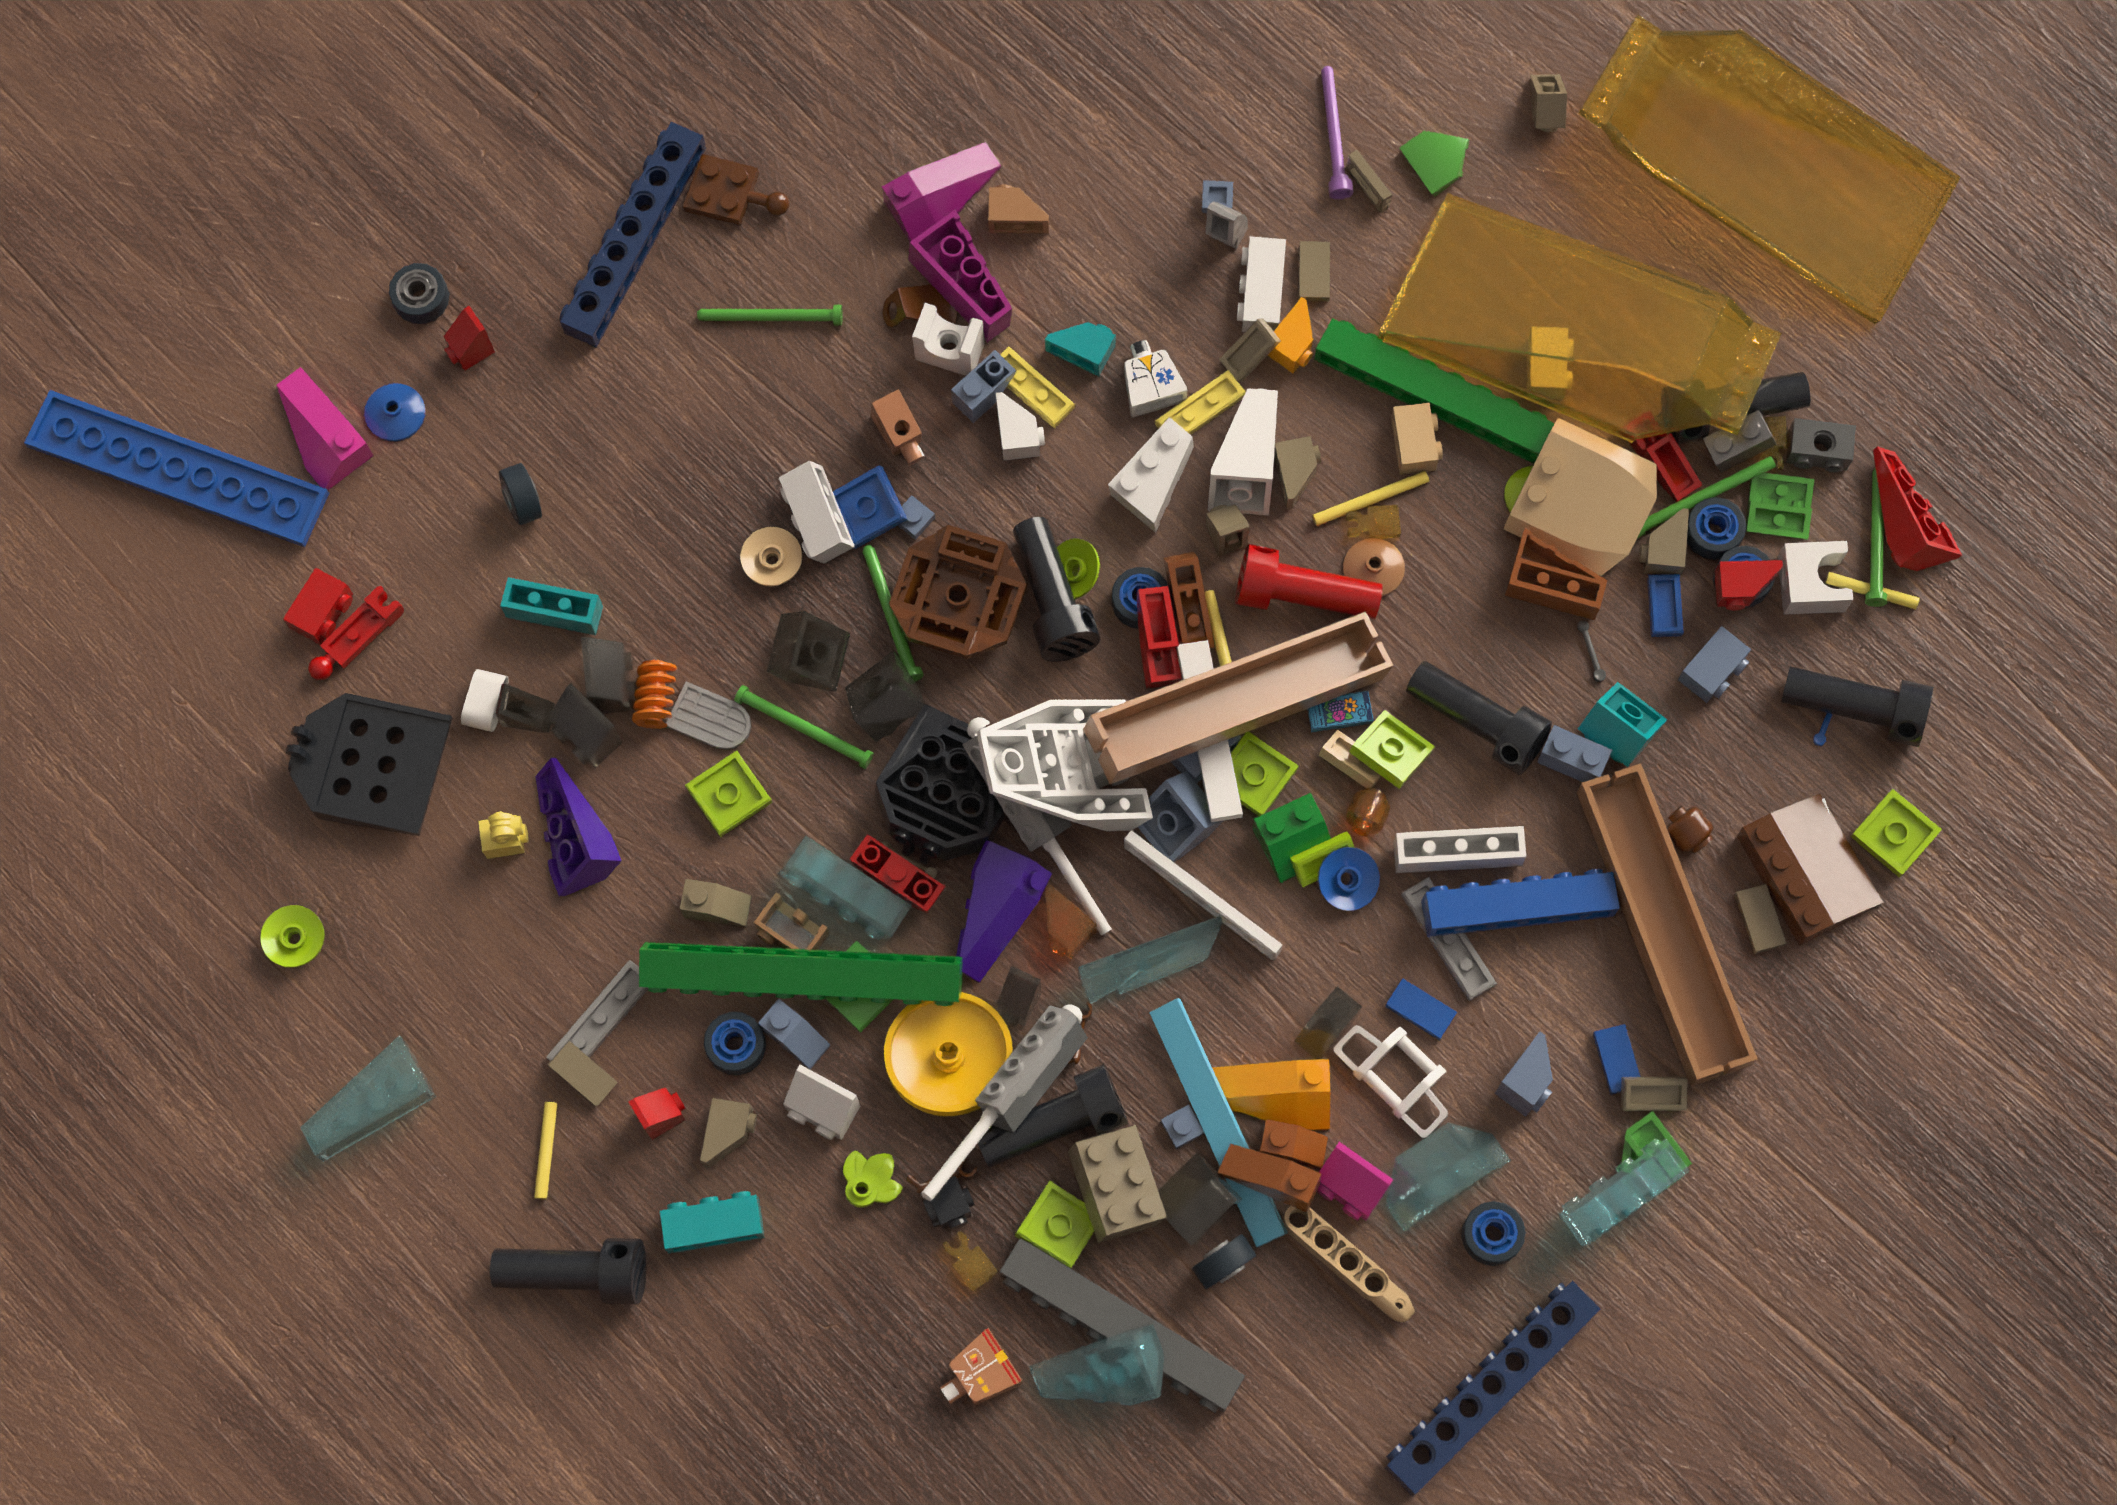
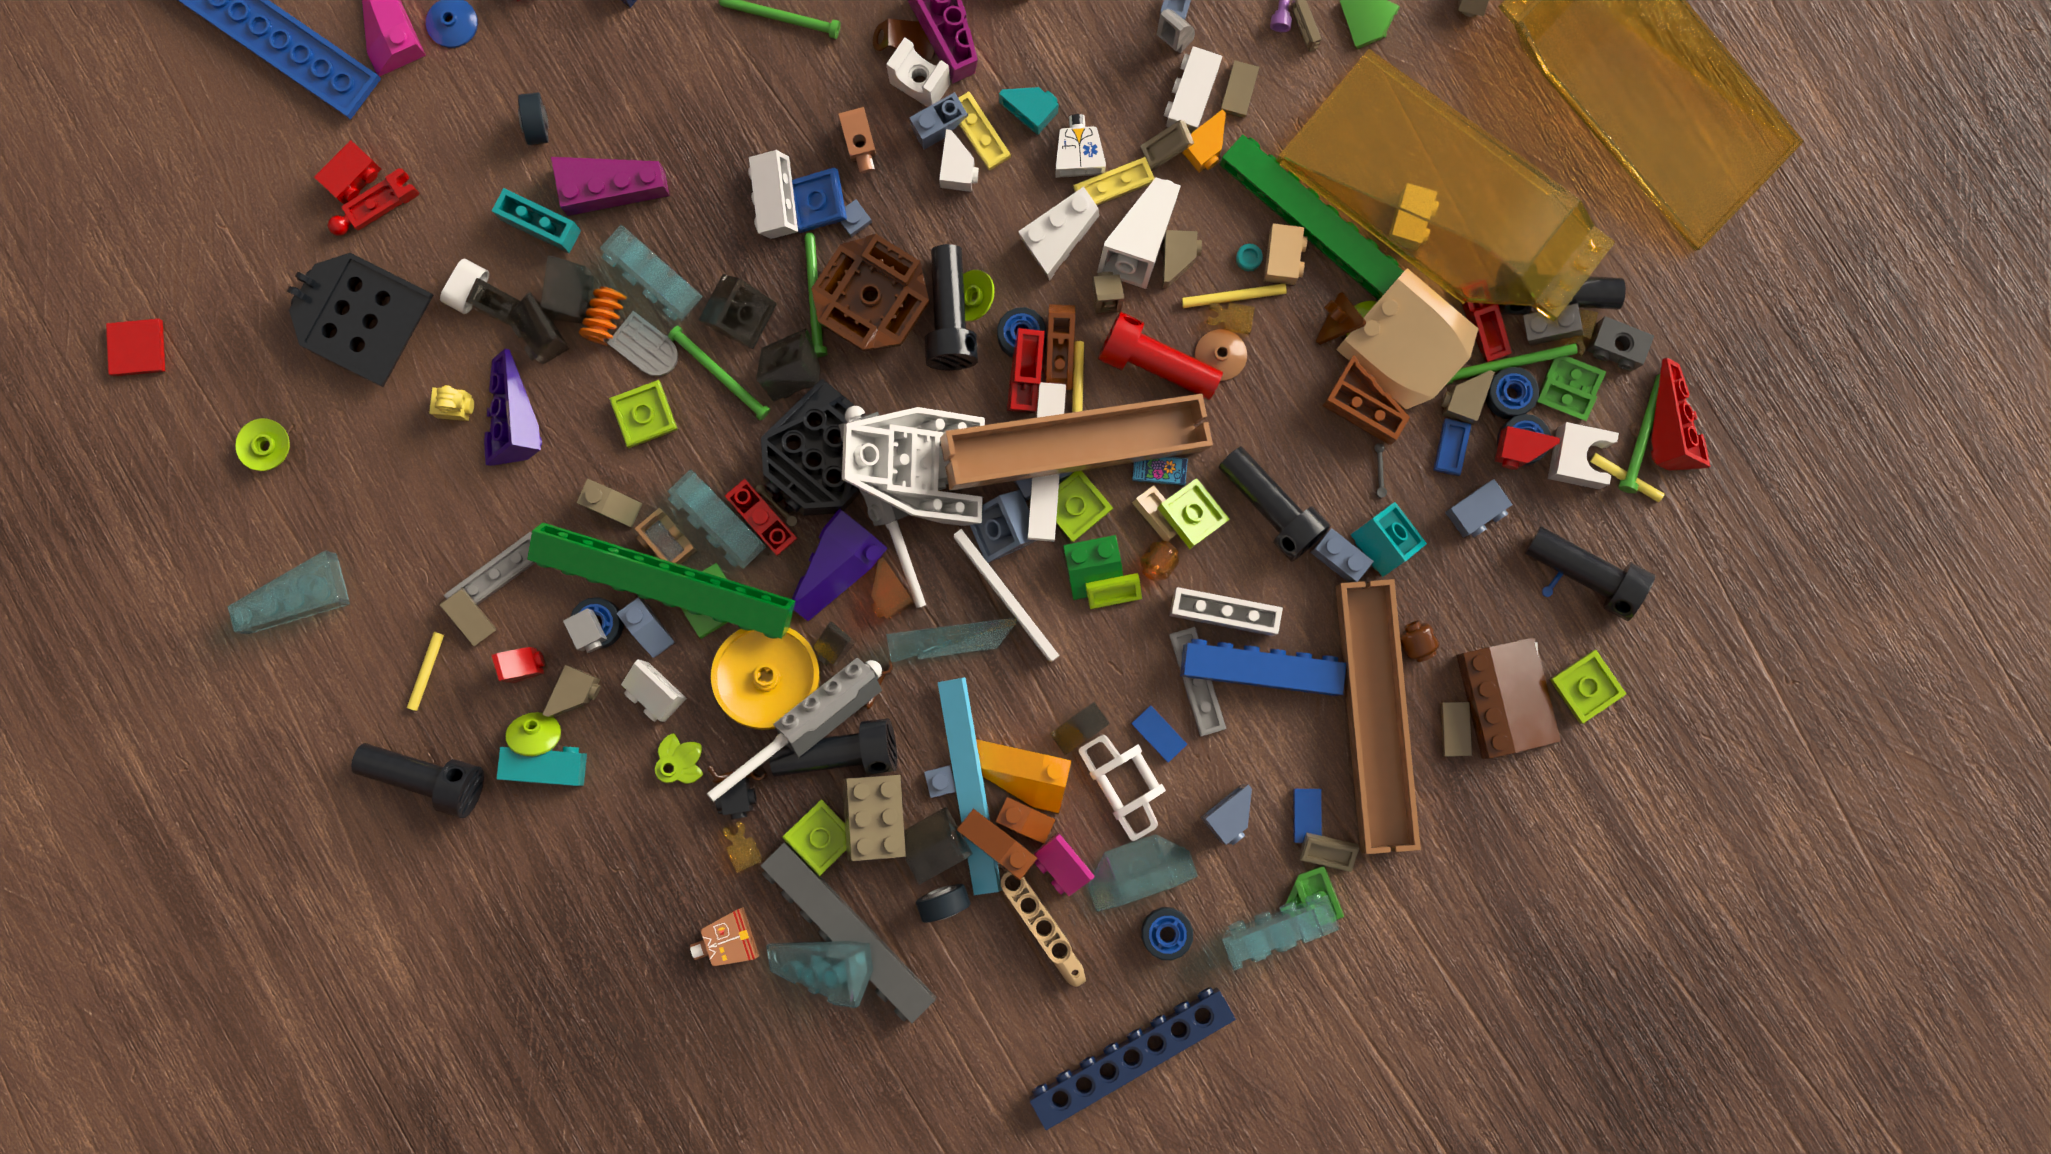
camera: 10 degrees right, 10 degrees up
(114, 863) = (135, 347): none -> red tile
(621, 545) = (606, 183): none -> magenta wedge
(693, 1189) = (533, 734): none -> lime dish
(698, 633) = (650, 273): none -> clear light blue wedge
(728, 1050) = (585, 631): none -> light grey brick
(768, 543) = (724, 211): tan dish -> none
(1363, 878) = (1139, 618): blue dish -> none
(1376, 452) = (1249, 257): none -> teal tile
(1499, 494) = (1341, 319): none -> reddish brown piece

